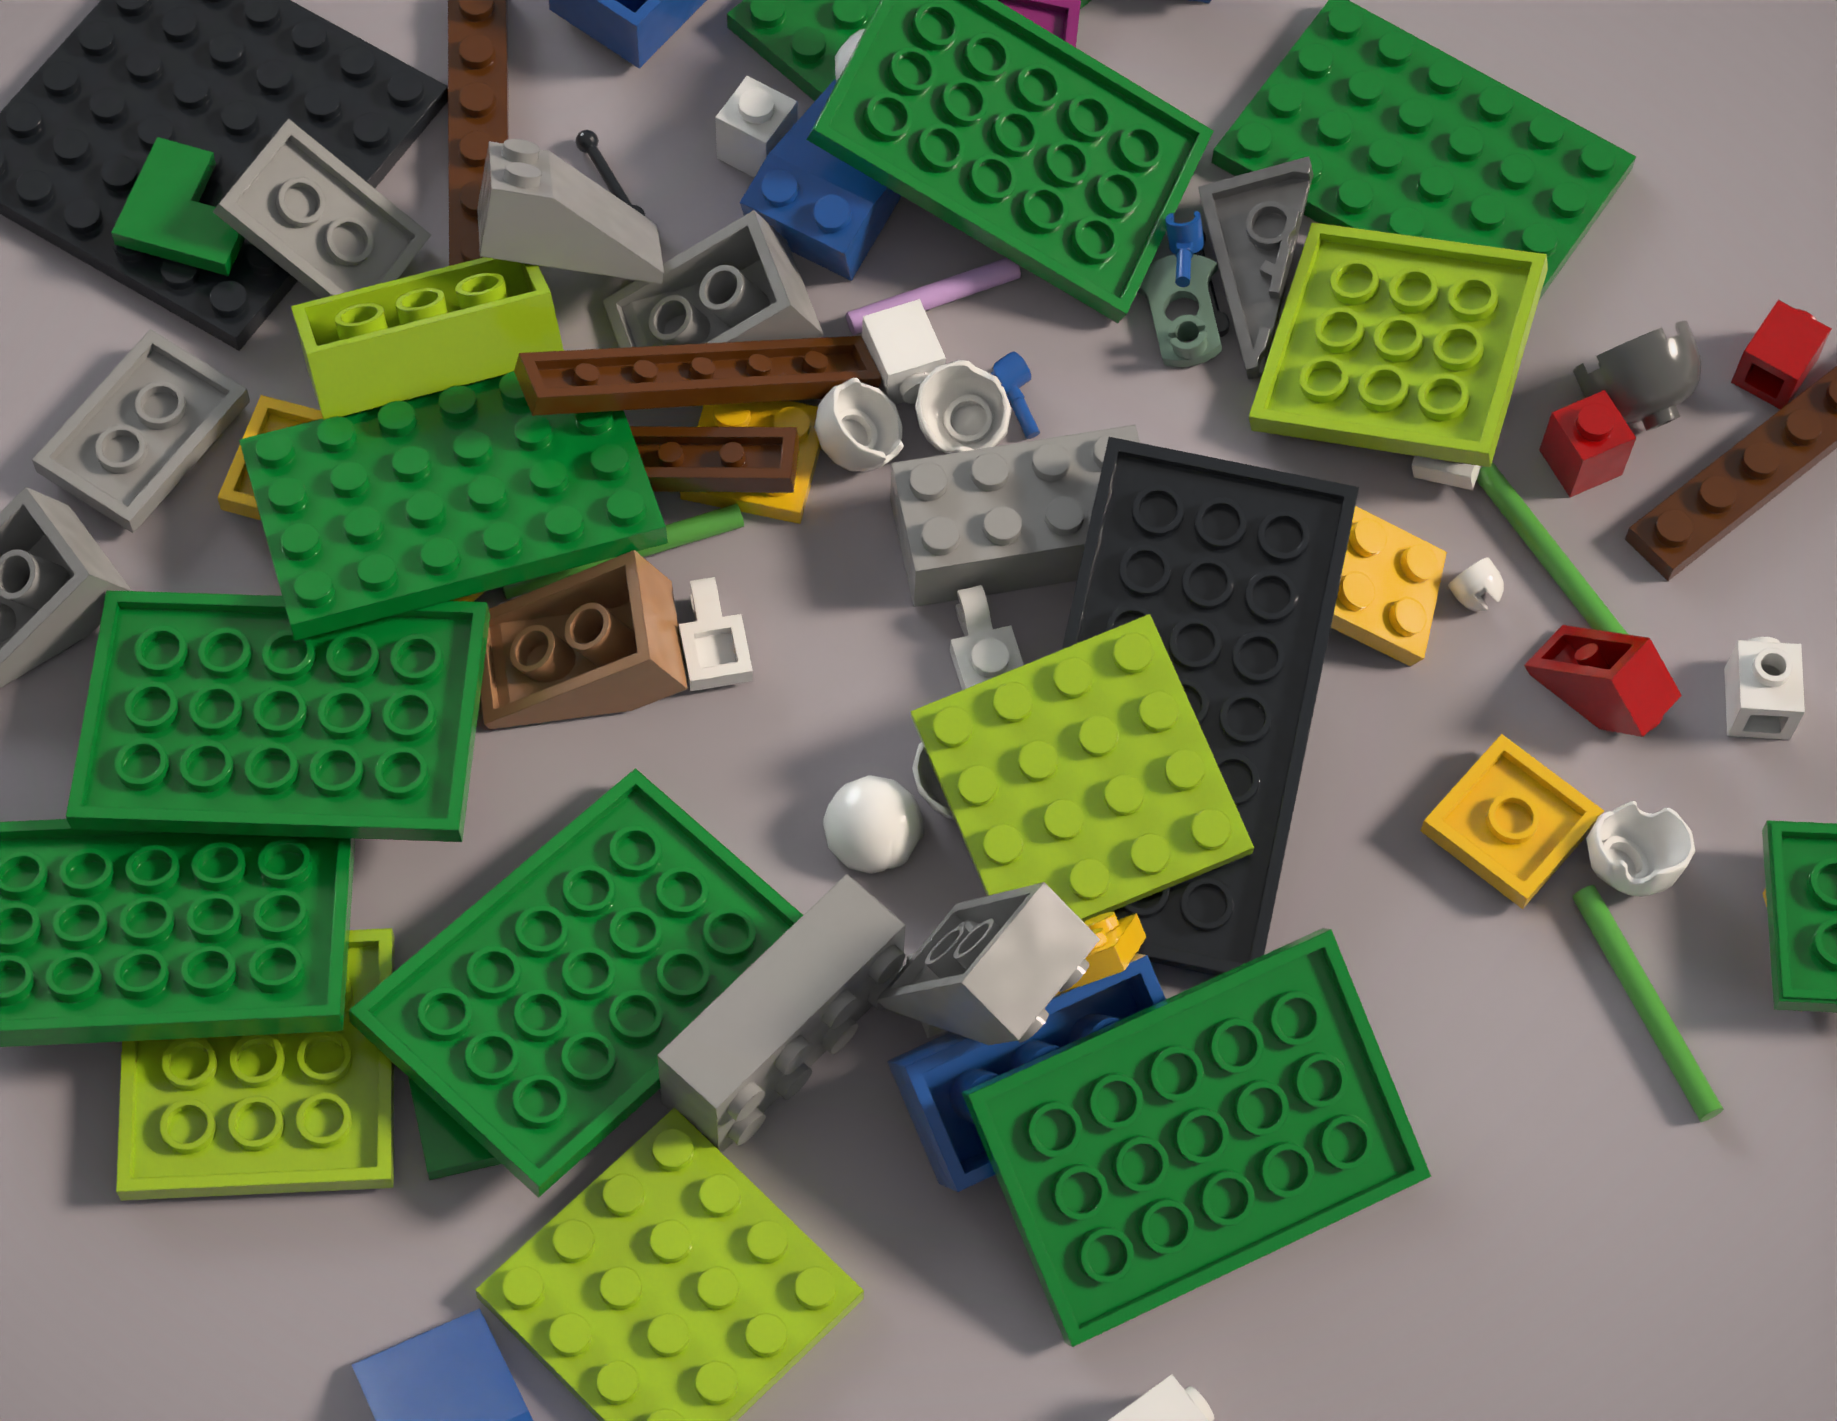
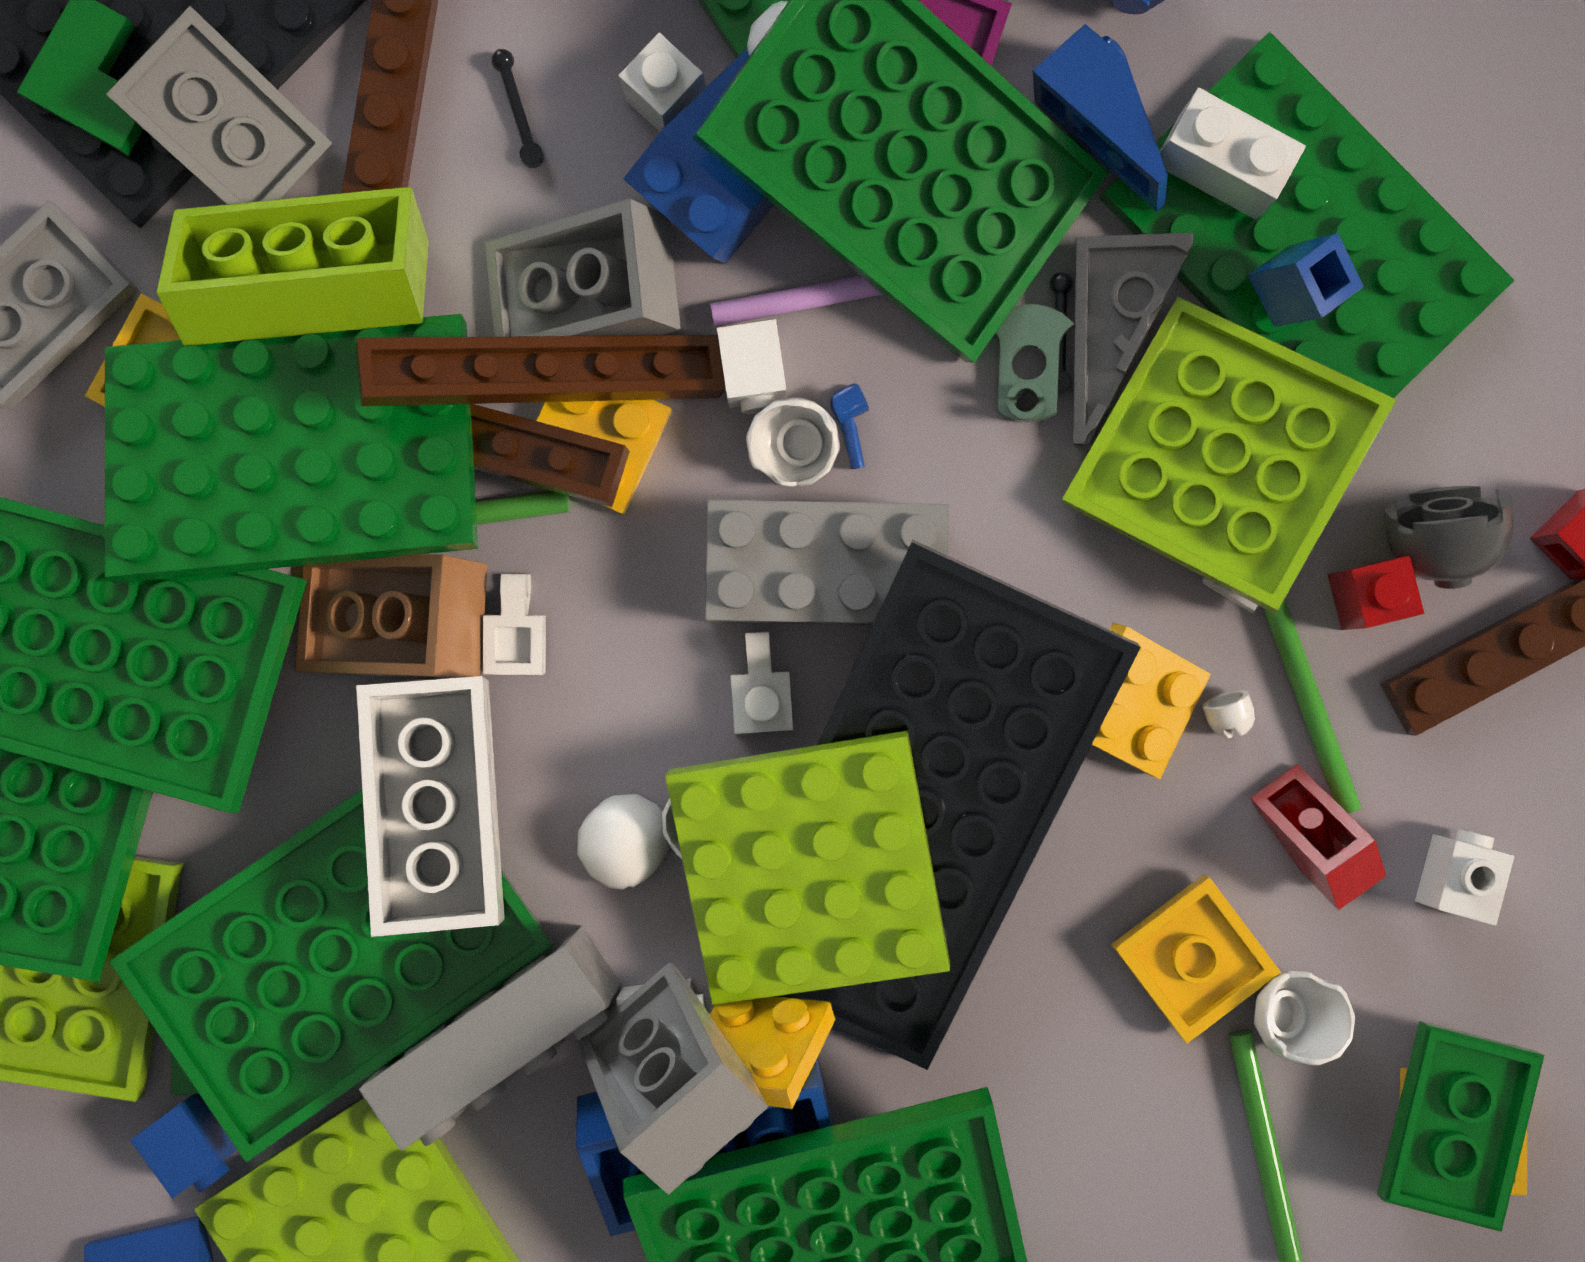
camera: 15 degrees right, 25 degrees up
(457, 1216) = (185, 1147): none -> blue brick
(556, 217) = (446, 167): light grey slope -> none
(671, 789) = (429, 805): none -> white brick
(858, 426) = (692, 439): white hair -> none
(1184, 241) = (1047, 296): blue hand -> none
(1196, 75) = (1096, 100): none -> blue slope
(1322, 85) = (1230, 154): none -> white brick
(1427, 171) = (1306, 280): none -> brick

